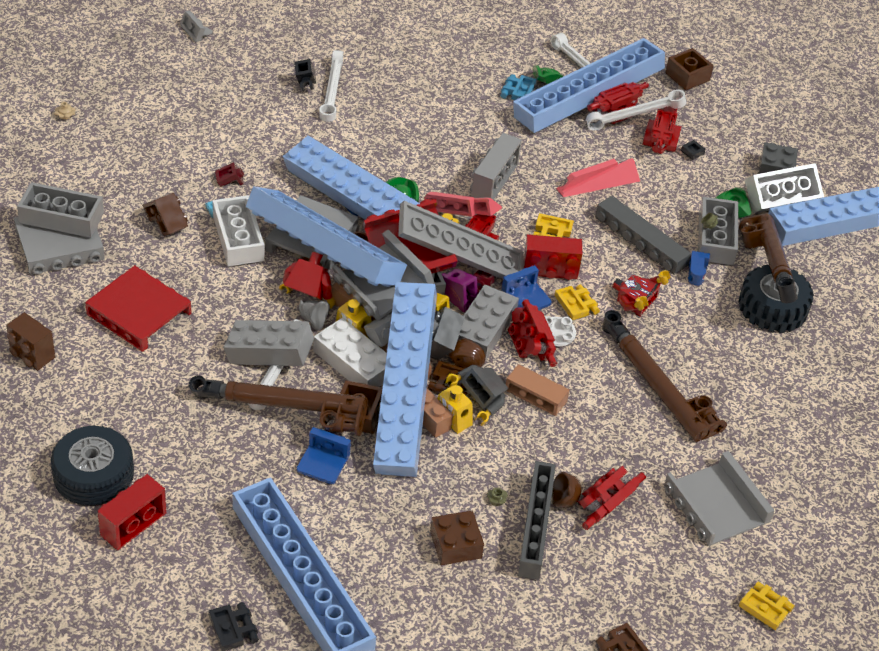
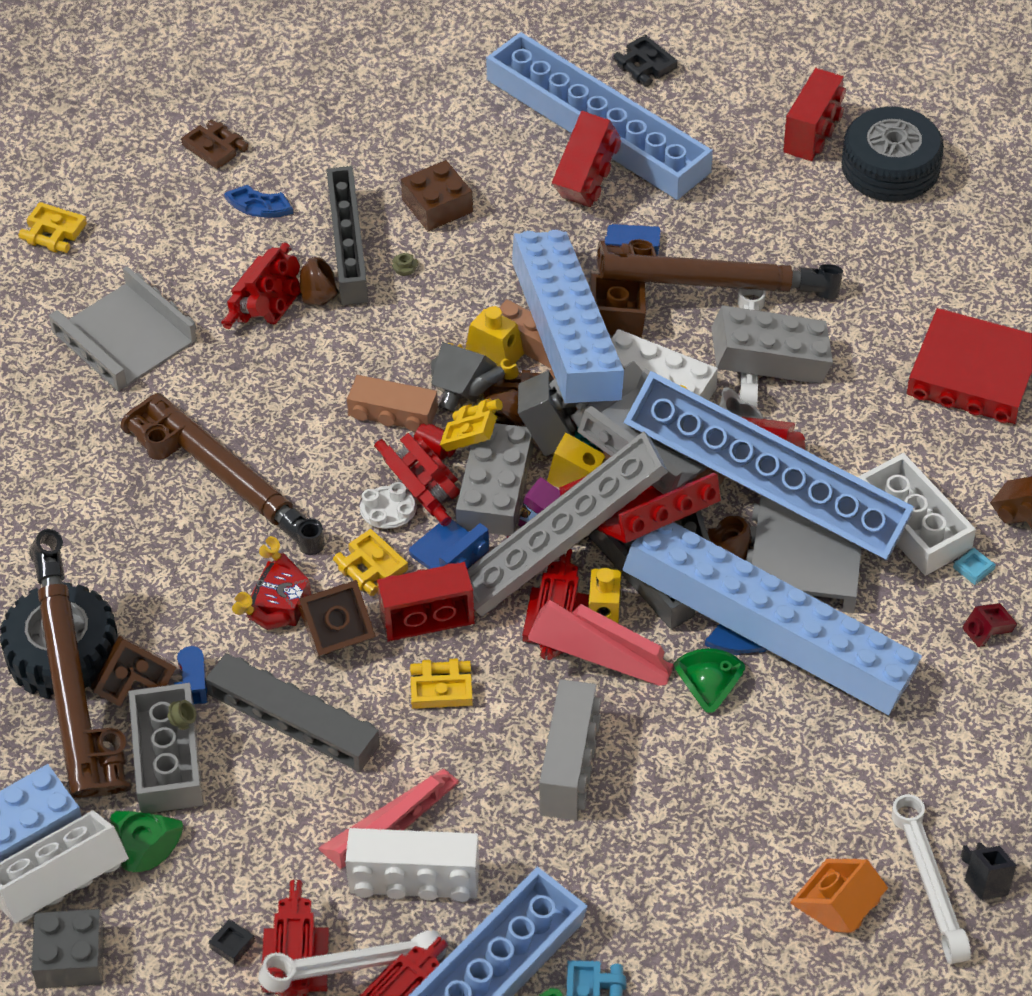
camera: 170 degrees right, 5 degrees up
(335, 506) = (586, 159): none -> red brick
(383, 89) = (841, 893): none -> orange slope
(498, 332) = (471, 424): none -> yellow plate
(513, 356) = (432, 437): none -> red brick
(593, 142) = (412, 864): none -> white brick
(602, 587) = (257, 203): none -> blue tile
(608, 262) = (336, 618): none -> reddish brown brick
(731, 267) = (130, 663): none -> reddish brown brick

